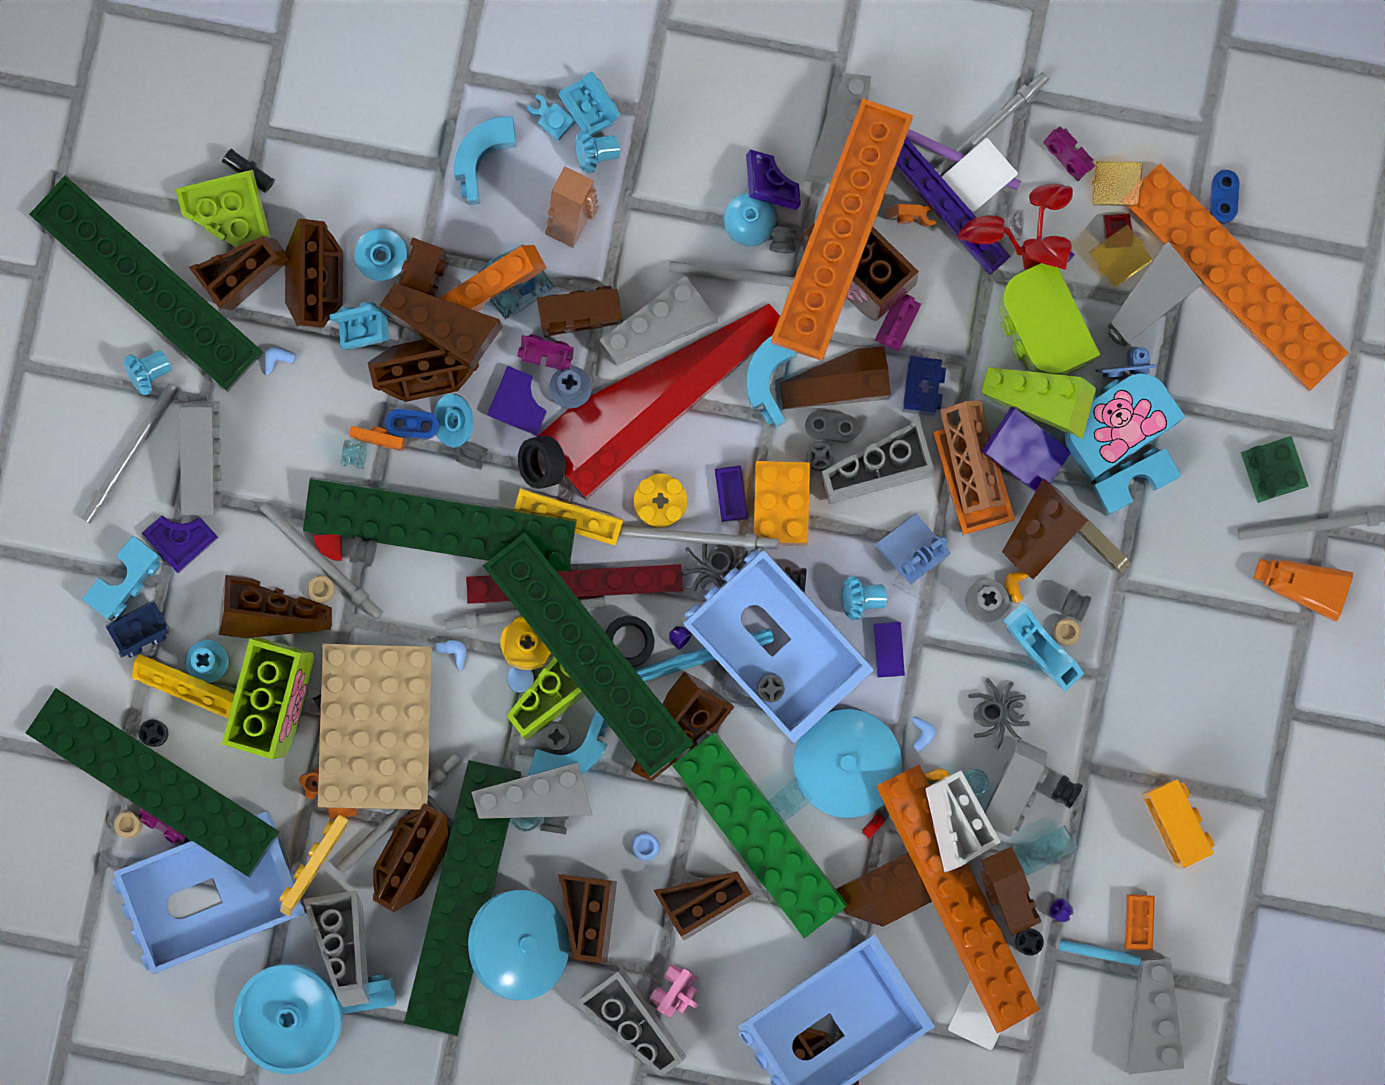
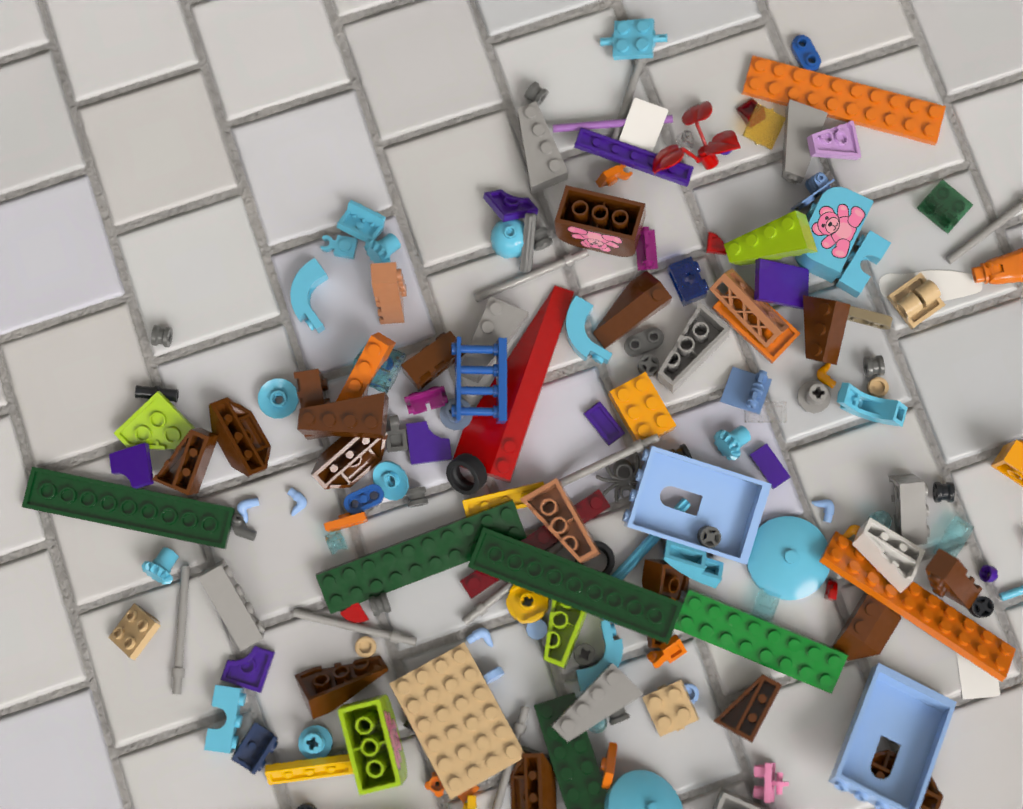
camera: 30 degrees left, 5 degrees down
(77, 425) = (134, 631): none -> tan plate
(179, 238) = (134, 464): none -> dark purple tile
(256, 378) = (240, 529): none -> dark grey arm
(290, 107) = (161, 336): none -> dark grey wheel
(341, 383) = (299, 498): none -> light blue animal
(361, 325) = (292, 452): medium azure bracket -> none
(443, 701) = (493, 675): none -> light blue tile
(487, 376) = (396, 437): none -> dark grey plate
(510, 870) = (608, 765): none -> orange plate
(589, 915) = (679, 764): reddish brown wedge -> none
(616, 568) = (559, 515): none -> nougat wedge
(617, 850) = (670, 708): none -> tan plate
(642, 365) = (498, 370): none -> blue fence
(654, 789) = (667, 652): none -> orange plate
(671, 511) = (571, 458): yellow plate -> none
(679, 636) = (626, 538): dark purple hinge -> none
(734, 707) = (693, 563): none -> medium azure slope
(766, 237) = (529, 240): none -> axle
(842, 229) = (579, 206): orange plate -> none
(879, 66) = (536, 93): none -> dark grey wheel
(981, 360) = (715, 244): none -> red tile
(998, 713) = (867, 466): dark grey animal -> none
(1031, 65) = (633, 39): none -> medium azure plate
(1045, 323) = (743, 193): lime brick -> none
(1061, 144) = (696, 84): magenta hinge -> none
(1117, 183) = (733, 82): clear yellow piece -> none
(1171, 558) = (916, 300): none -> tan plate
(1190, 323) = (835, 143): none -> lavender wing
(1197, 550) = (950, 283): none -> white sticker

